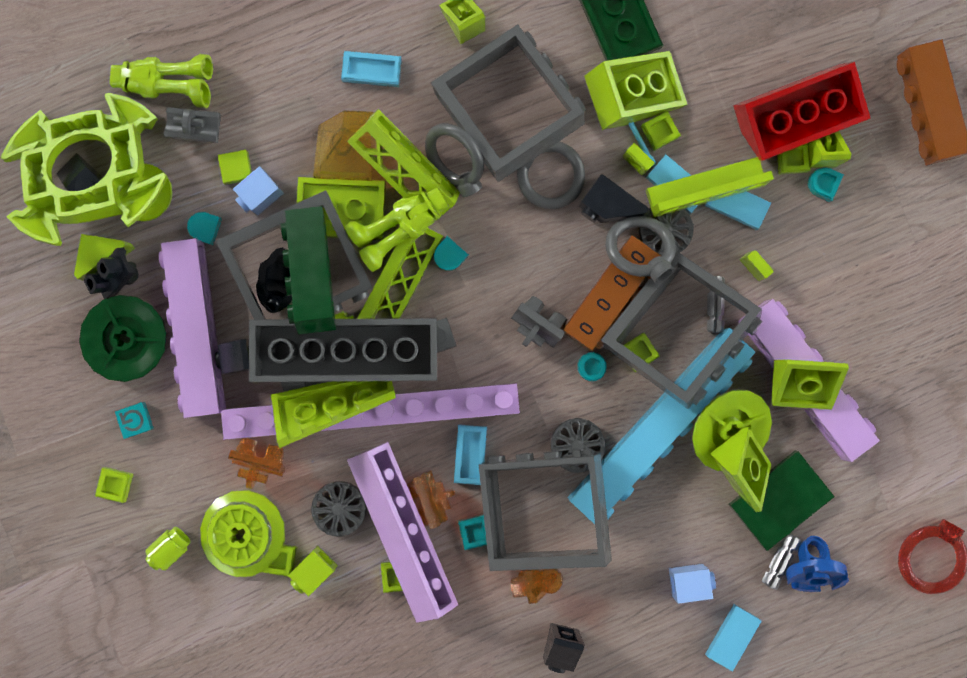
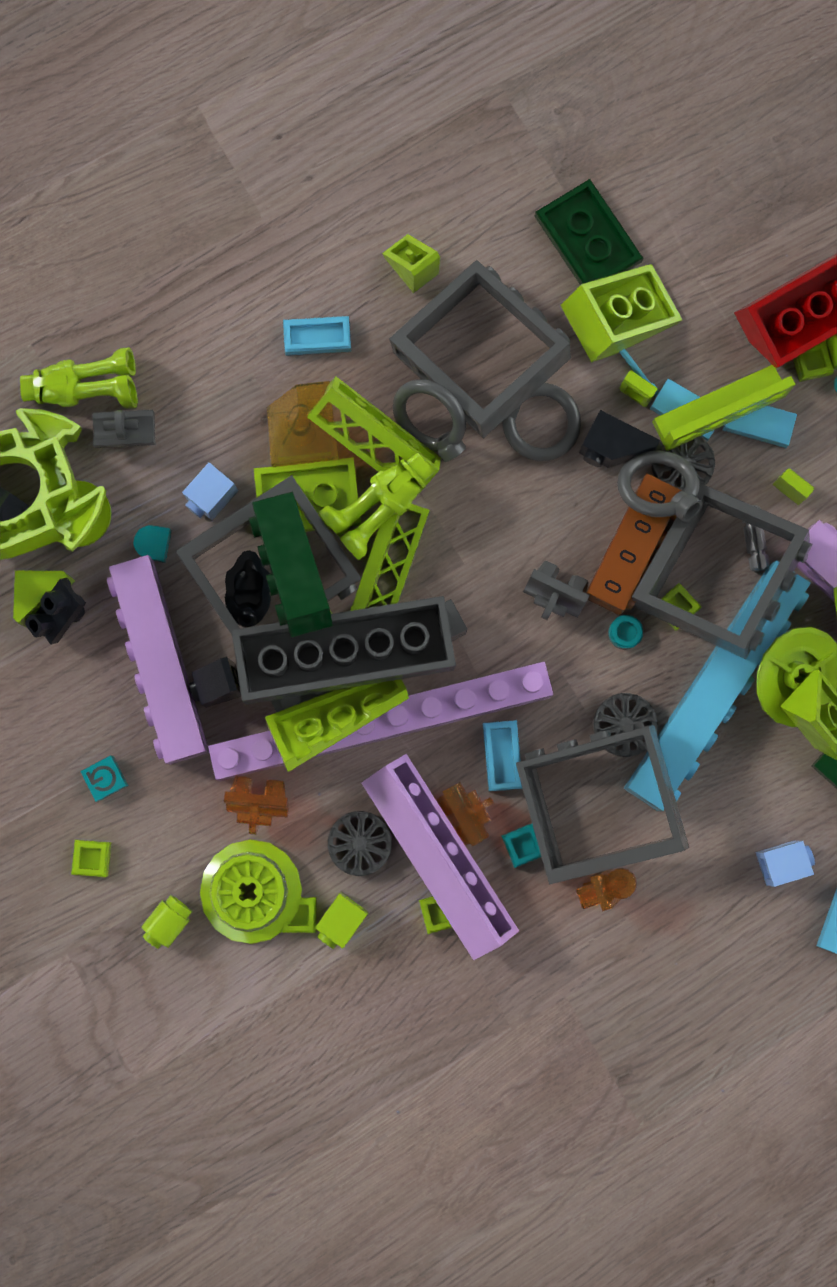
camera: 10 degrees left, 5 degrees down
(102, 342) = (65, 662): dark green piece -> none
(234, 166) = (177, 469): lime tile -> none
(449, 255) = (440, 530): teal tile -> none
(563, 648) = (650, 964): black slope -> none
(660, 130) = (657, 353): lime tile -> none

